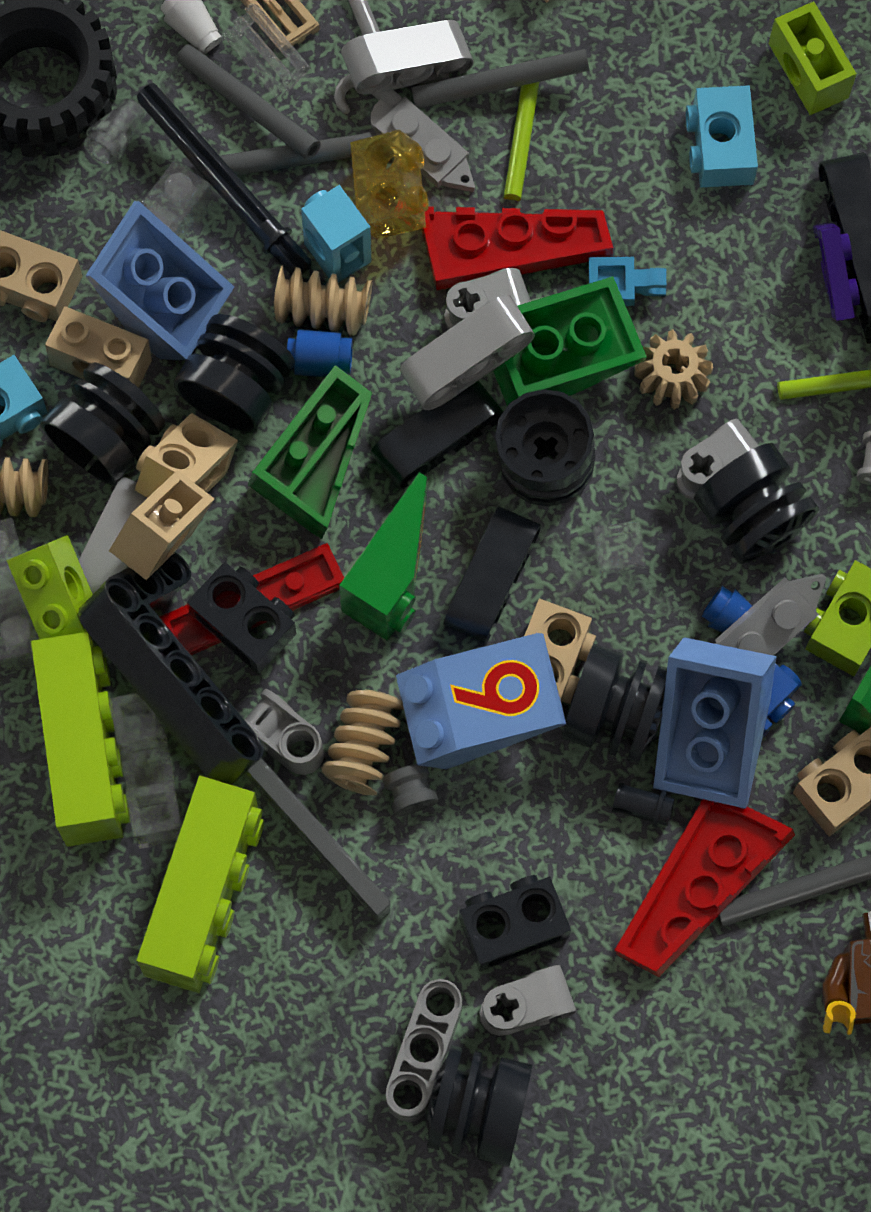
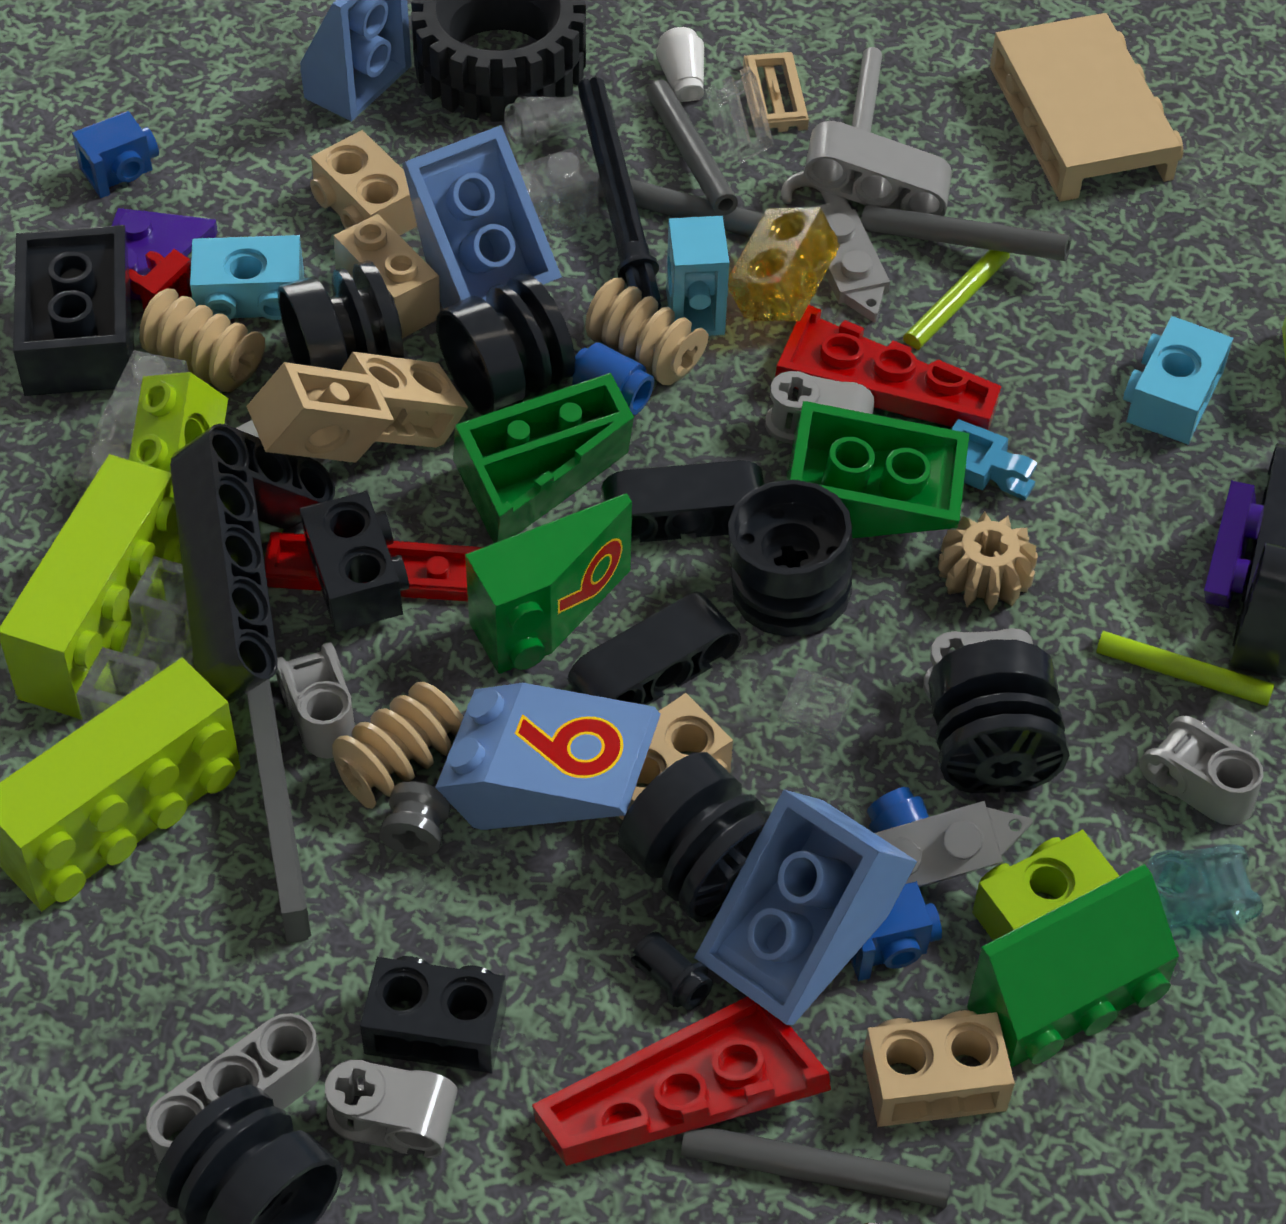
camera: 30 degrees right, 20 degrees down
(467, 352) = (758, 418): light grey beam -> none

